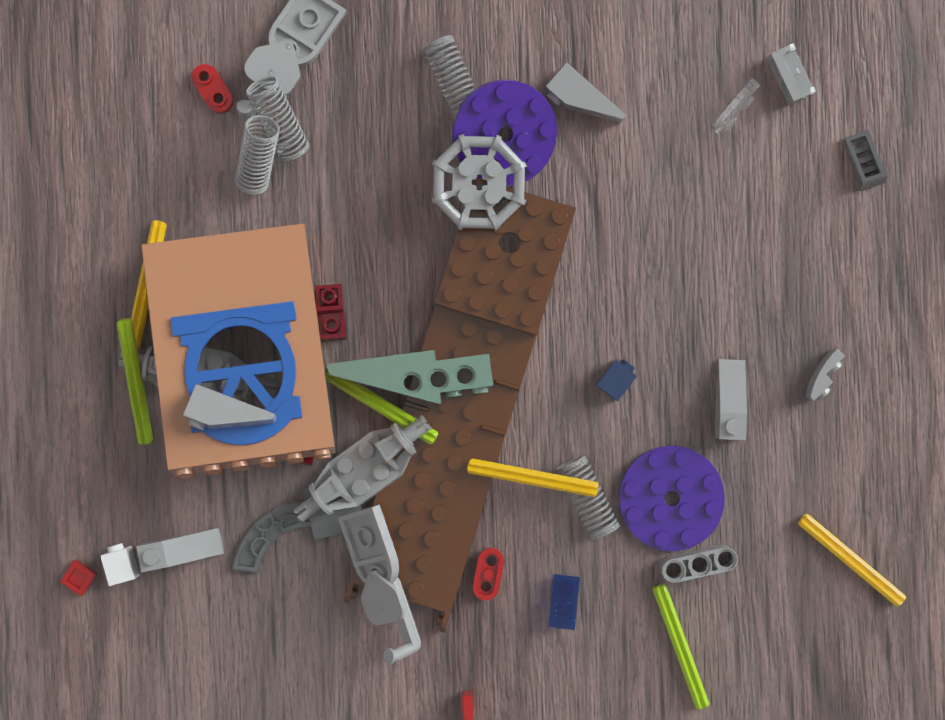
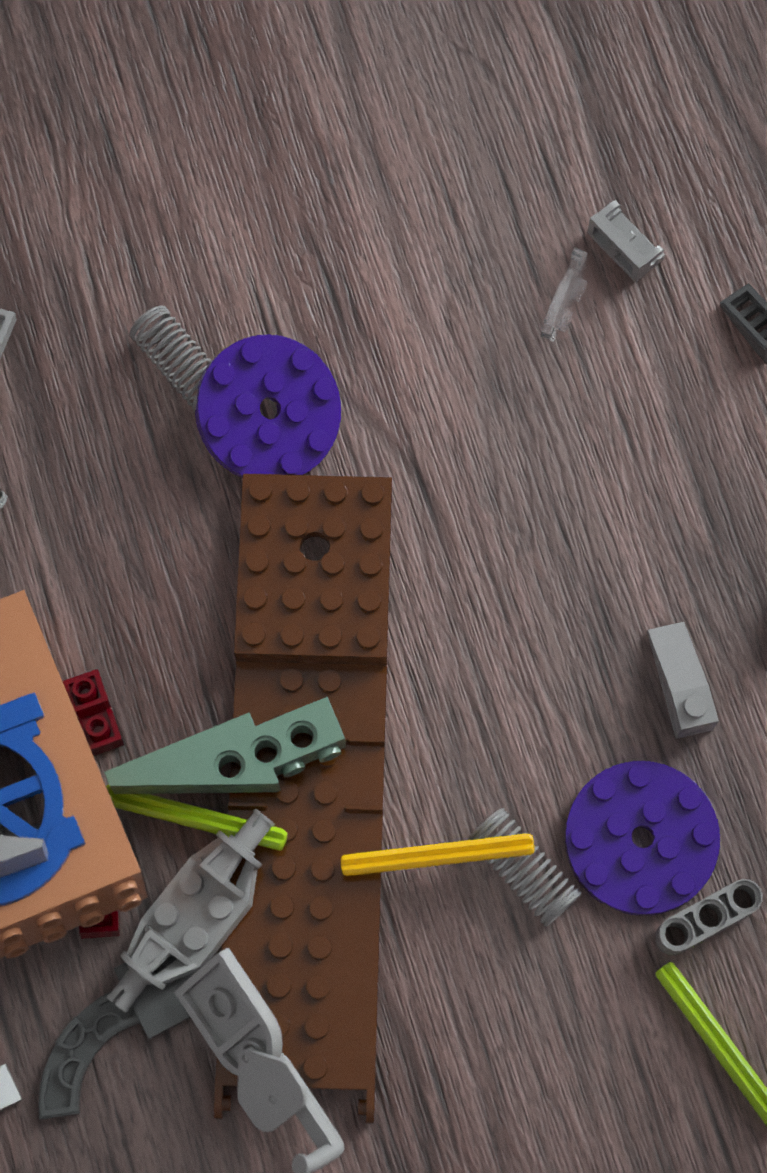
camera: 15 degrees left, 15 degrees down
(467, 171) = (238, 492): light grey plate -> none
(488, 573) = (414, 1018): red plate -> none
(563, 602) = (534, 1027): clear blue plate -> none
(578, 94) = (354, 338): light grey slope -> none
(616, 379) = (515, 693): dark blue brick -> none

